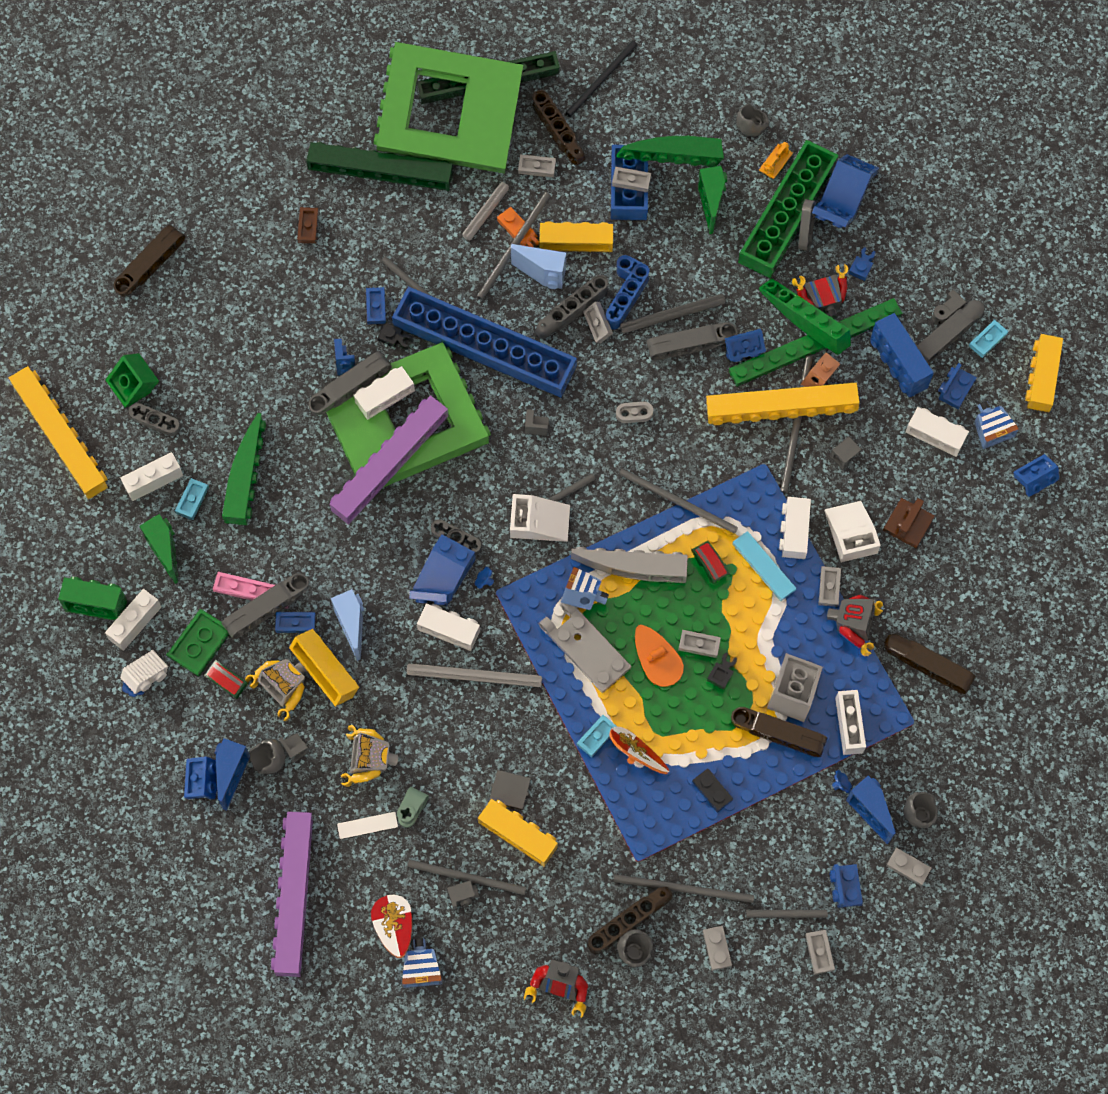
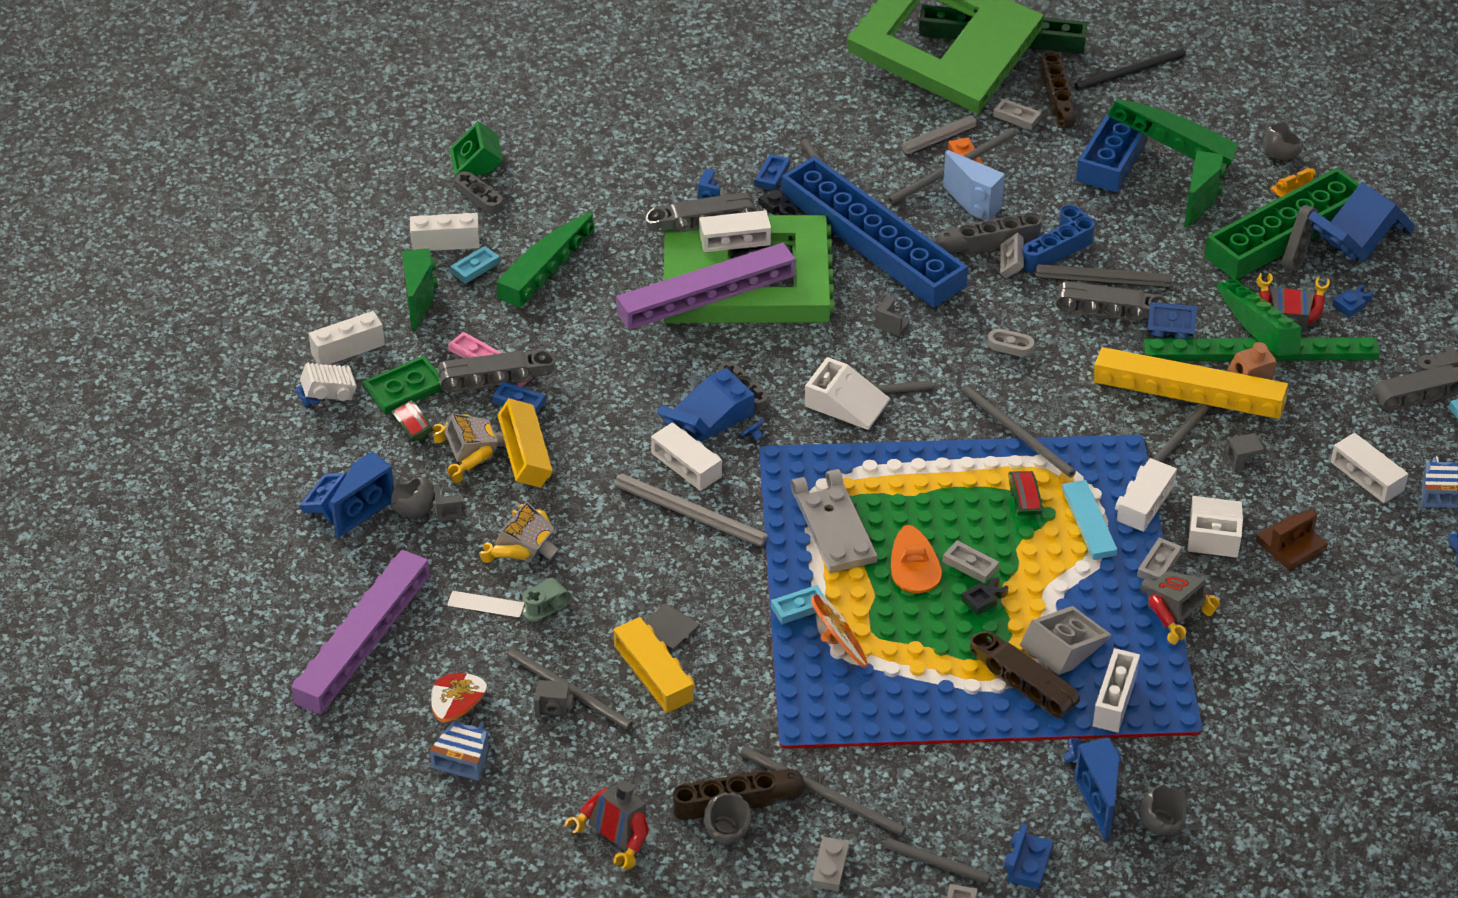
camera: 25 degrees right, 25 degrees down
(58, 433) = (373, 174): yellow brick -> none
(92, 598) = (312, 301): green brick -> none
(149, 260) = (556, 69): dark brown piece -> none
(308, 225) = (739, 90): reddish brown plate -> none
(349, 614) = (580, 408): light blue slope -> none
(380, 166) = (845, 67): dark green brick -> none
(576, 236) = (1033, 181): yellow brick -> none
(583, 590) = (857, 464): torso -> none
(631, 179) = (1114, 139): light grey plate -> none
(635, 564) = (934, 466): light grey slope -> none
(712, 790) = (910, 704): black plate -> none
(901, 355) = (1357, 382): blue brick -> none
(908, 866) = (1120, 870): light grey plate -> none
(929, 663) = (1251, 678): dark brown piece -> none
(956, 387) = (1414, 436): blue bracket -> none

